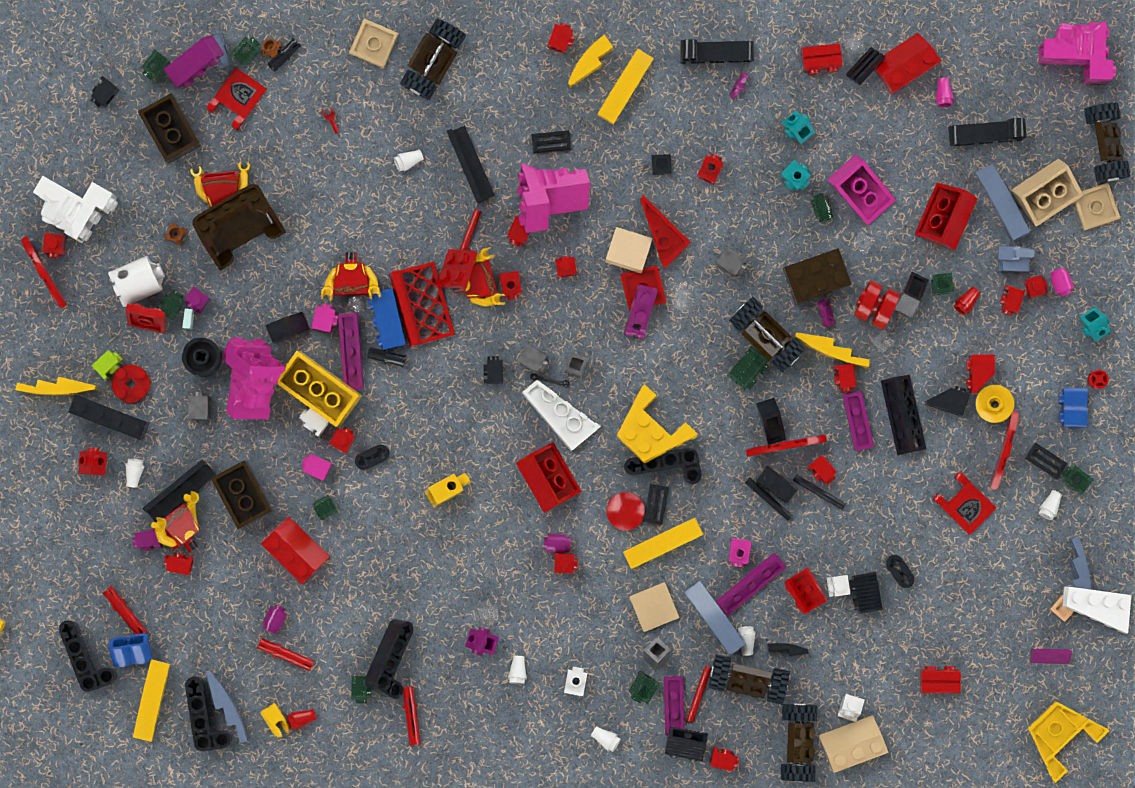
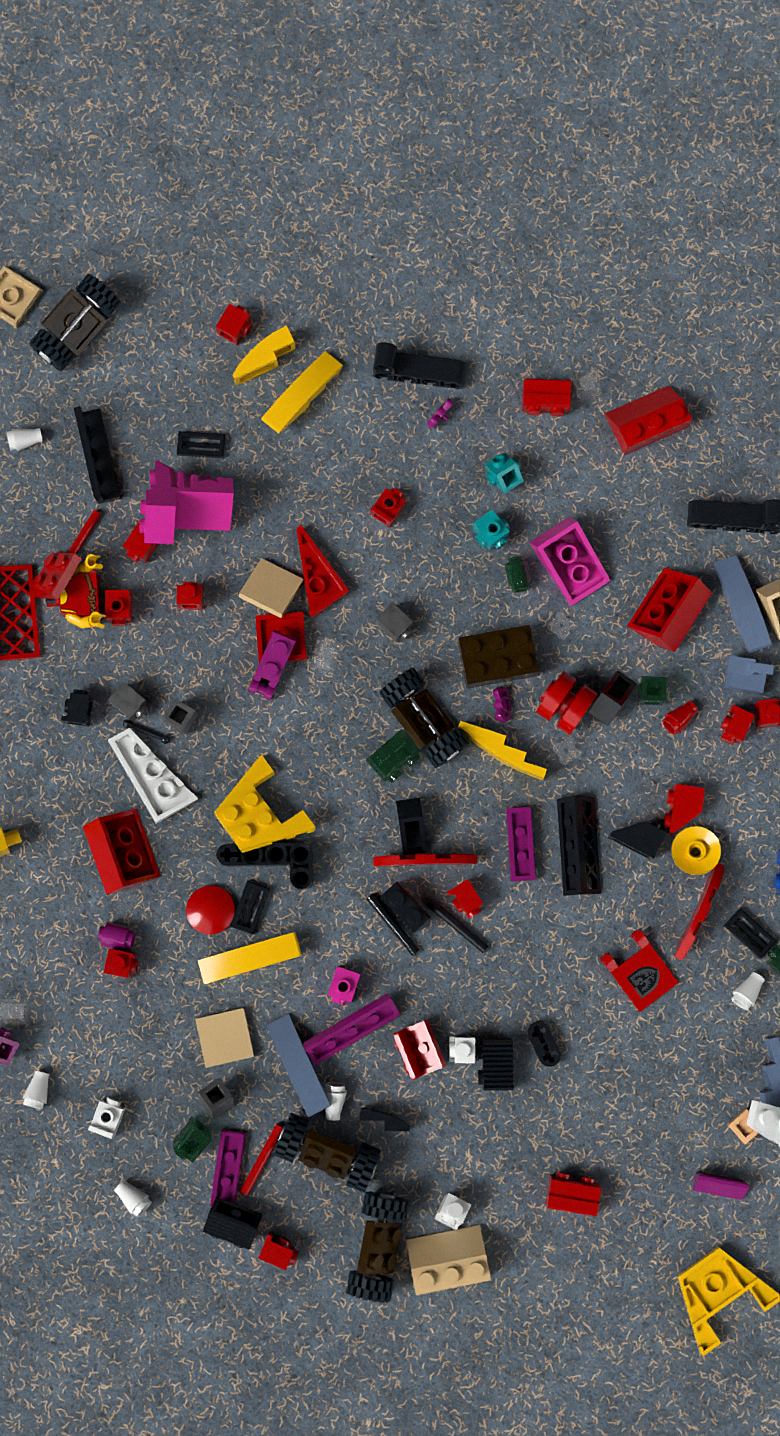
camera: 15 degrees right, 5 degrees down
(661, 164) = (330, 492): black tile -> none
(845, 377) = (512, 787): red brick -> none
(865, 66) = (598, 414): black tile -> none
(944, 94) = (689, 462): dark pink cone -> none

